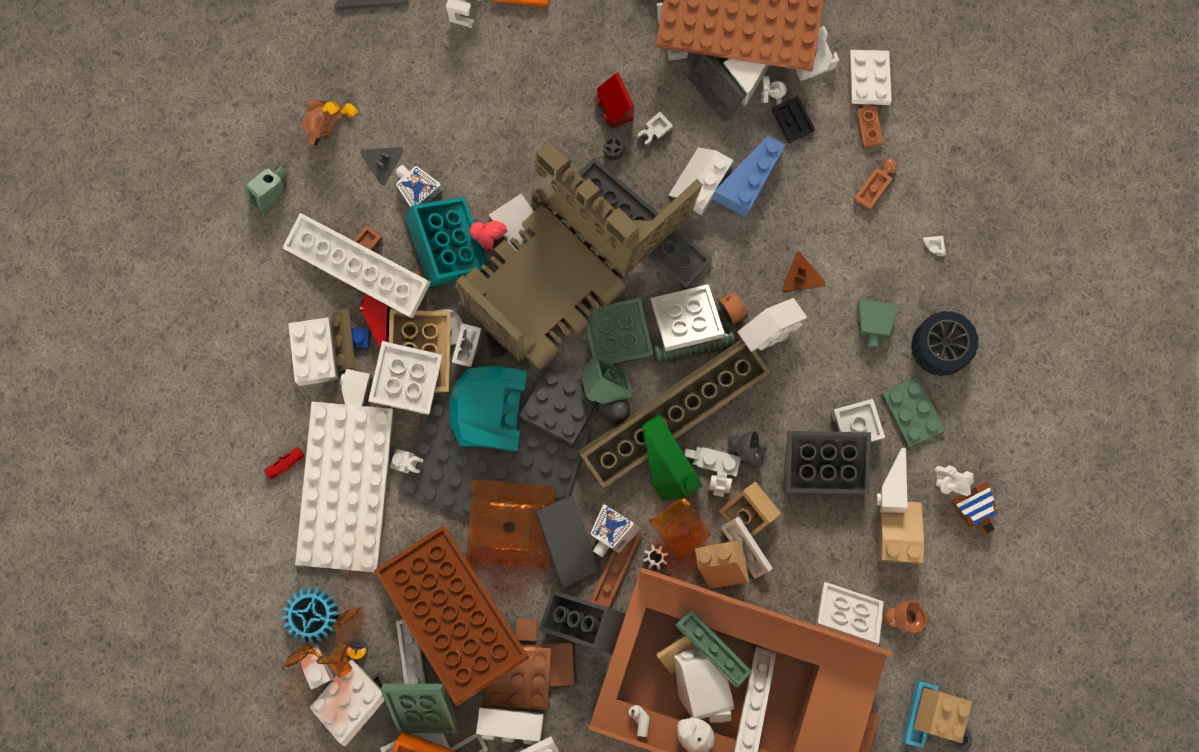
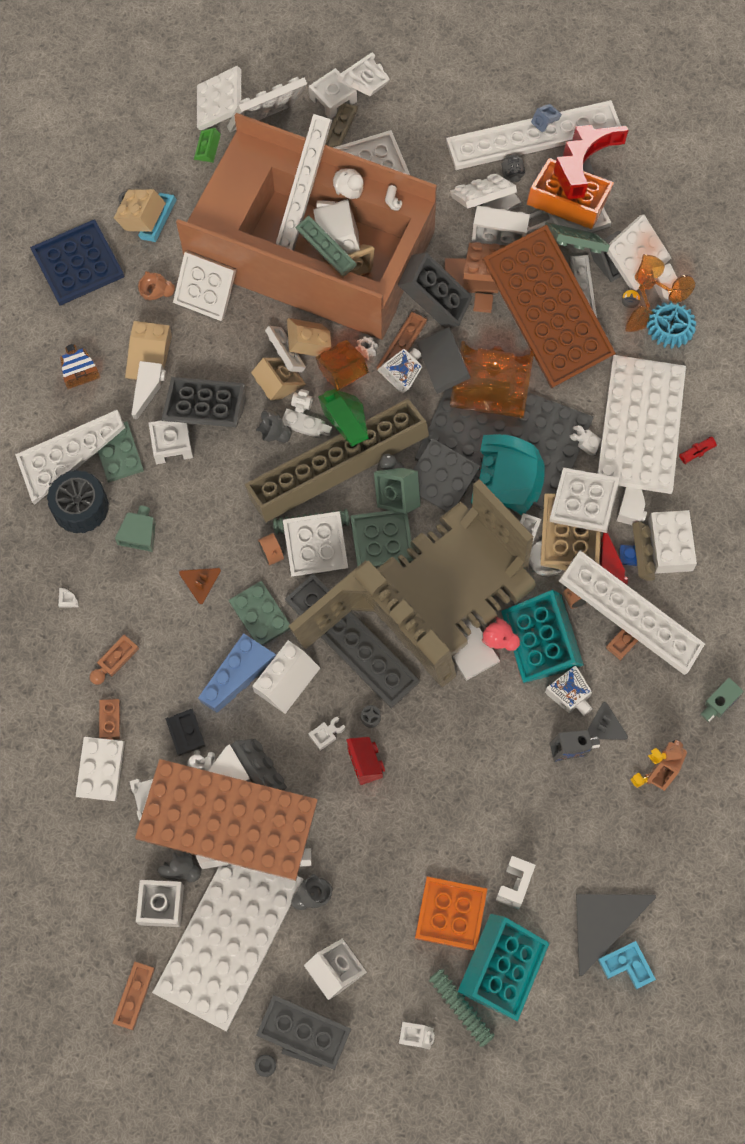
camera: 175 degrees left, 10 degrees down
(413, 132) = (573, 745): none -> dark grey torso
(735, 244) = (260, 613): none -> sand green plate
(772, 325) = (236, 520): white brick -> none
(950, 480) = (96, 384): white hips -> none
(975, 394) = (65, 453): none -> white wing
(1003, 645) = (77, 262): none -> dark blue plate

